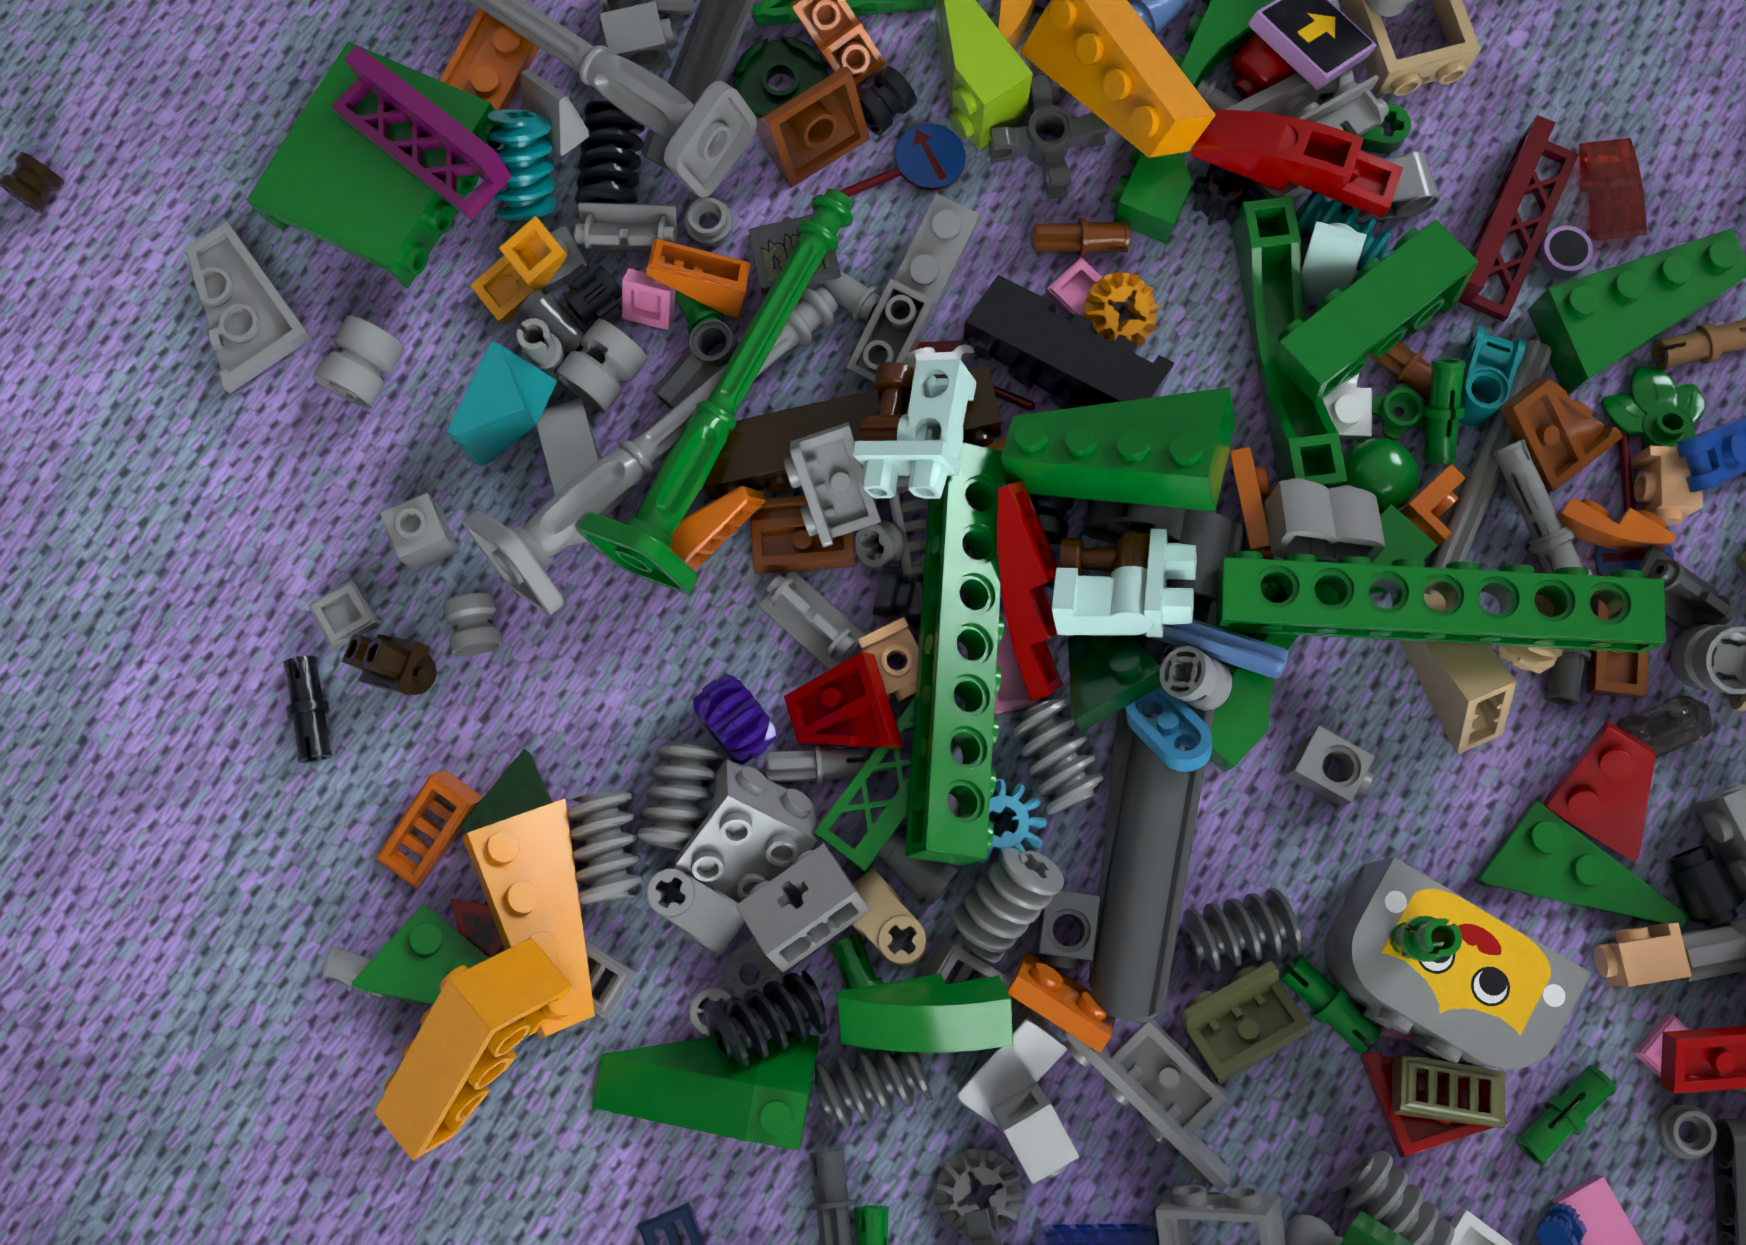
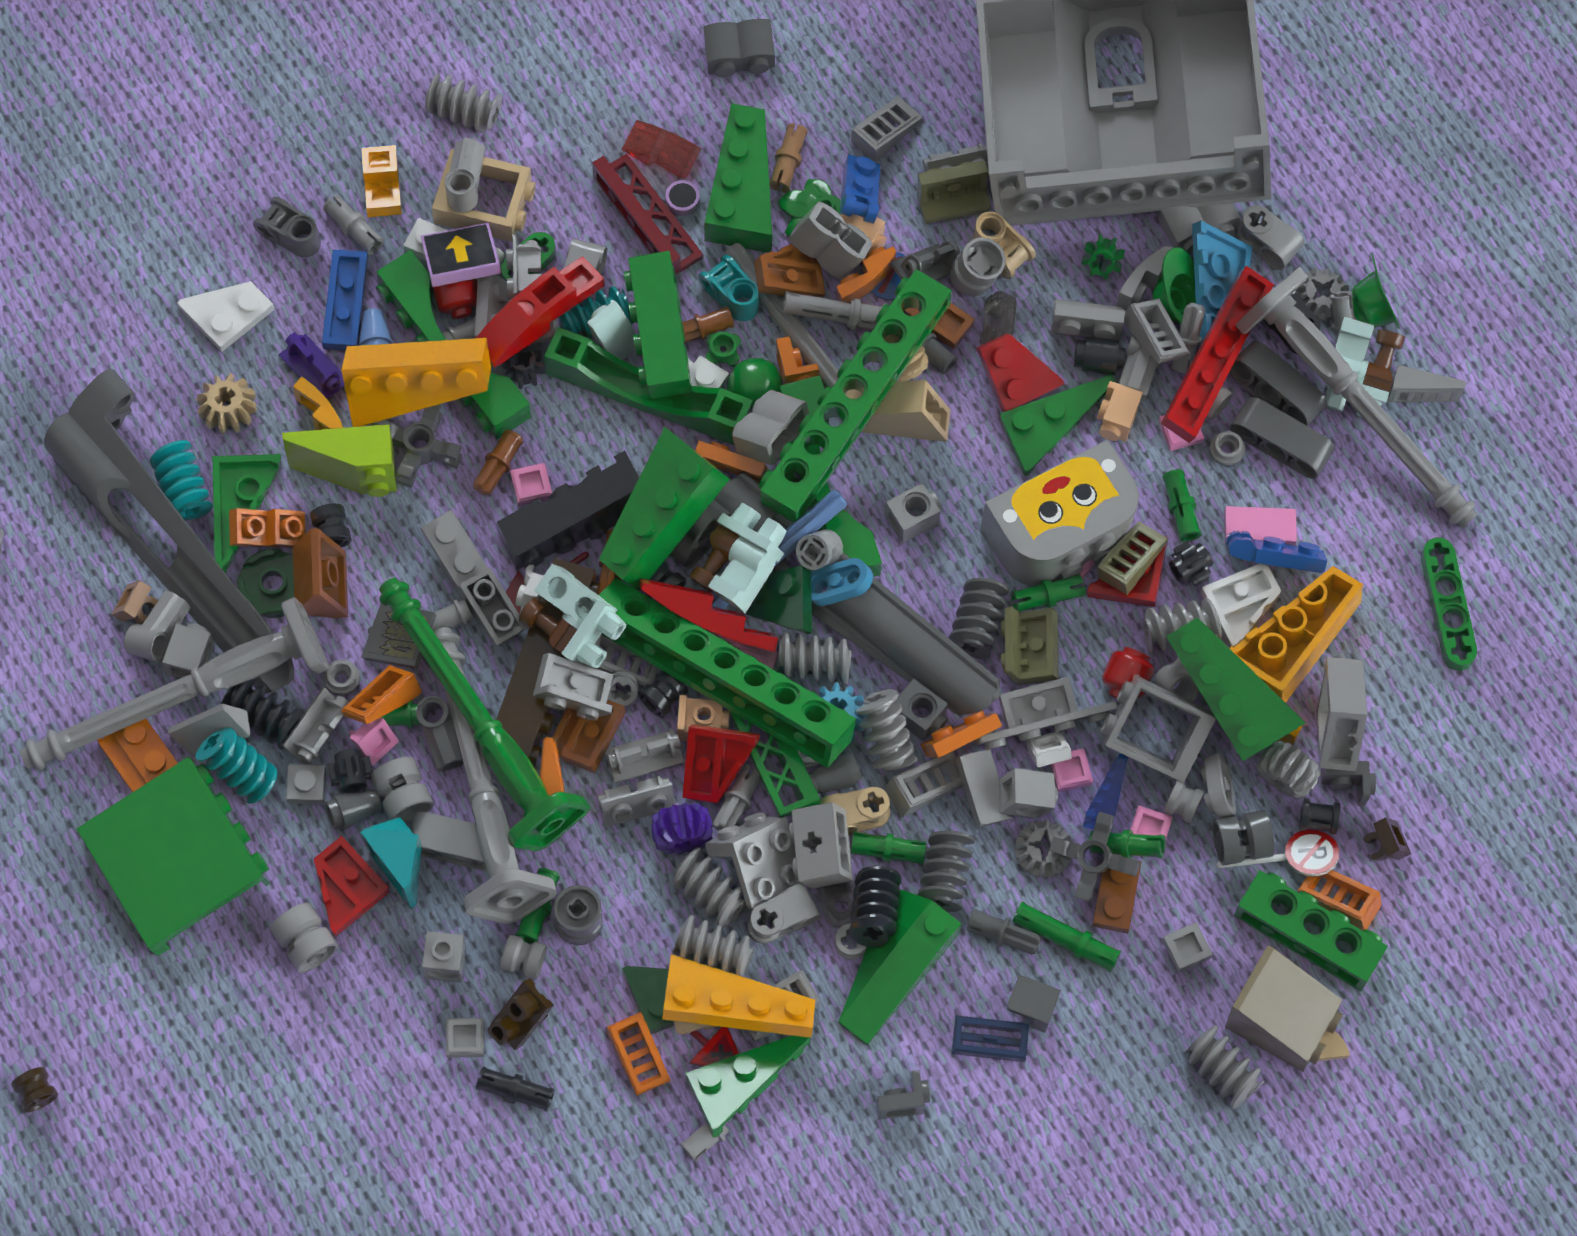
camera: 65 degrees left, 10 degrees down
(243, 308) = (213, 996): light grey wing -> none
(427, 119) = (182, 795): magenta fence -> none
(447, 368) = (347, 884): none -> red wing
(467, 1044) = (793, 1078): light orange wedge -> none
(526, 1197) = (901, 1104): none -> dark grey bracket
(527, 265) = (305, 806): light orange slope -> none
(540, 346) = (372, 811): light grey pin -> none
(554, 657) = (578, 915): none -> dark grey wheel
(577, 598) = (532, 923): none -> green pin
(731, 628) = (623, 806): none -> light grey hinge
(925, 157) = (382, 524): blue piece -> none
(926, 1015) = (925, 810): green slope -> none
(1106, 1168) = (1072, 772): none -> bright pink tile
(1114, 1128) = (1049, 749): none -> white tile
(1116, 289) = (547, 460): light orange gear -> none
(1285, 1170) = (1123, 667): none -> red head
(1422, 943) = (1037, 507): green pin -> none
(1443, 410) = (740, 323): green pin -> none
(1490, 1175) = (1191, 563): none -> black gear
(1630, 454) = (830, 240): none -> light grey brick

